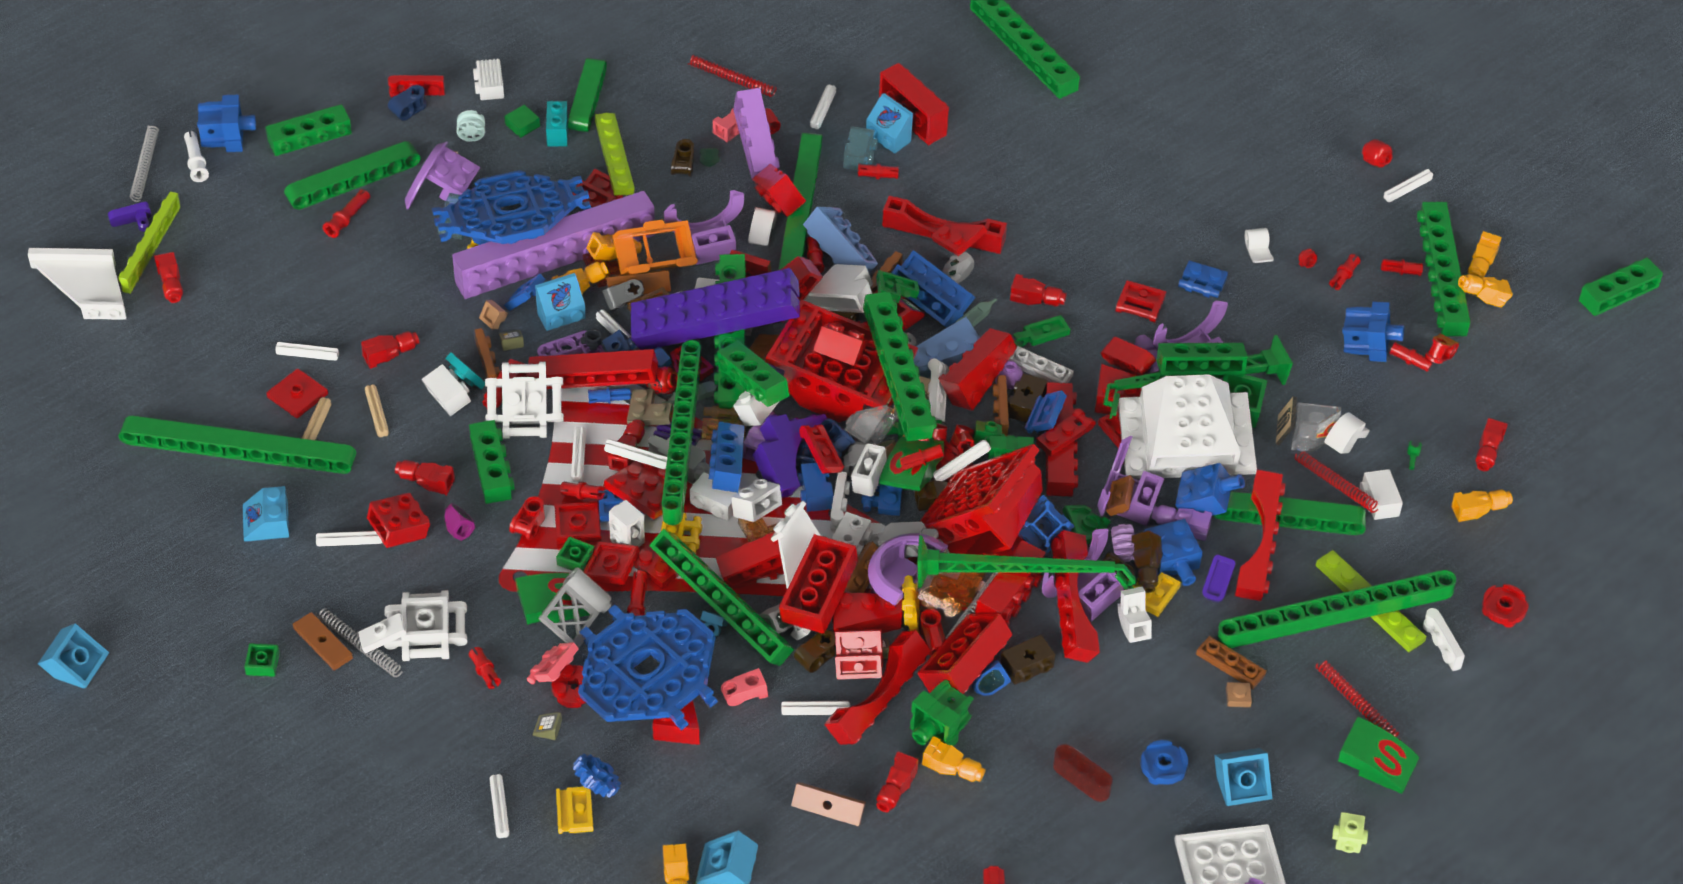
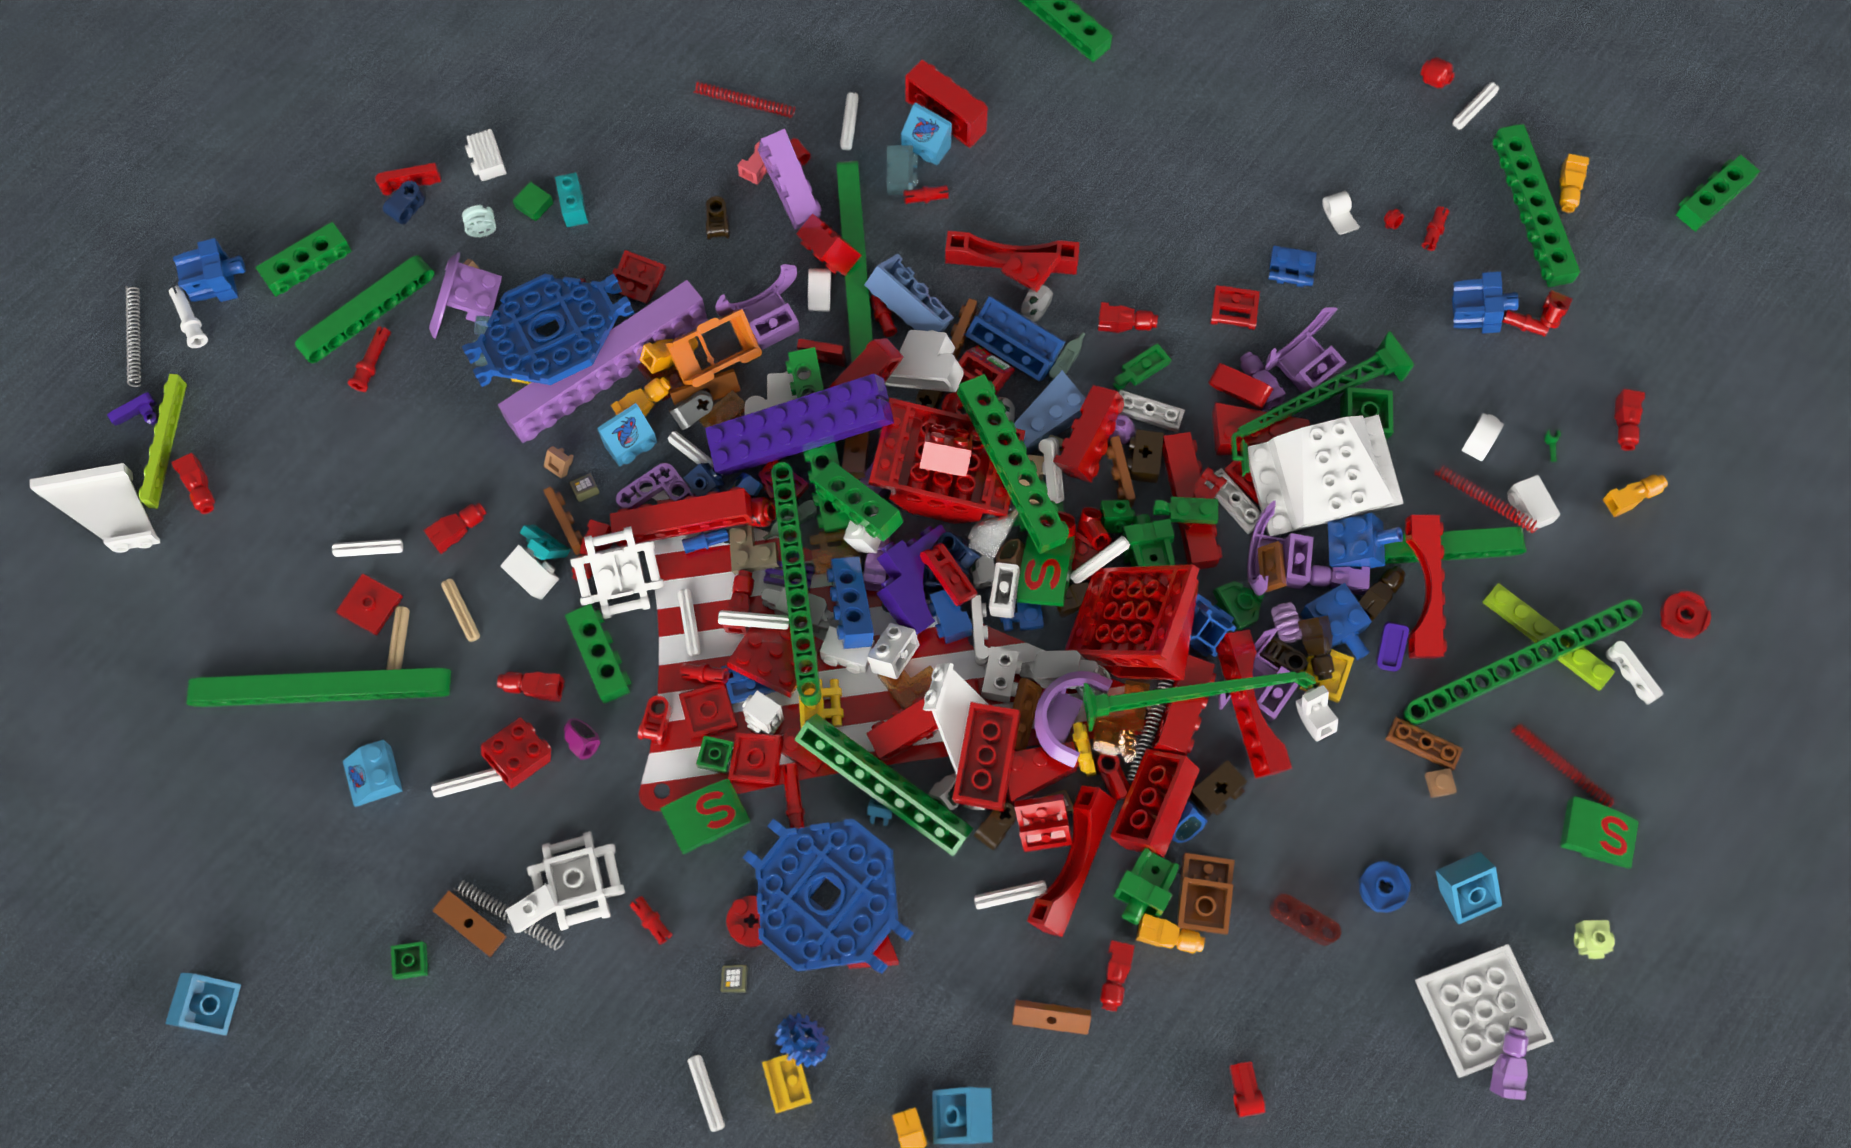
camera: 10 degrees left, 20 degrees up
(524, 292) = (586, 428): blue plate -> none
(552, 663) = (723, 903): coral plate -> none
(587, 95) = (595, 155): green beam -> none
(587, 595) = (739, 808): light grey piece -> none
(592, 339) = (672, 469): black plate -> none
(614, 154) = (642, 227): lime plate -> none
(709, 156) = (746, 213): clear green plate -> none
(744, 688) = (931, 888): coral leg -> none
(896, 285) = (978, 350): green plate -> none
(922, 457) = (1059, 569): red axle -> none
(995, 734) = (1205, 893): none -> dark orange slope
(1045, 412) = (1173, 477): blue plate -> none
(1051, 434) = (1188, 510): none -> green plate
(1101, 448) = (1243, 510): none -> white tile
(1201, 358) = (1323, 382): green brick -> none
(1217, 539) = (1381, 593): none -> dark brown piece
(1286, 420) = (1420, 434): clear smoke piece -> none
(1312, 426) = (1446, 436): clear slope -> none
(1402, 267) = (1492, 211): red axle -> none
(1487, 289) = (1589, 226): light orange piece -> none

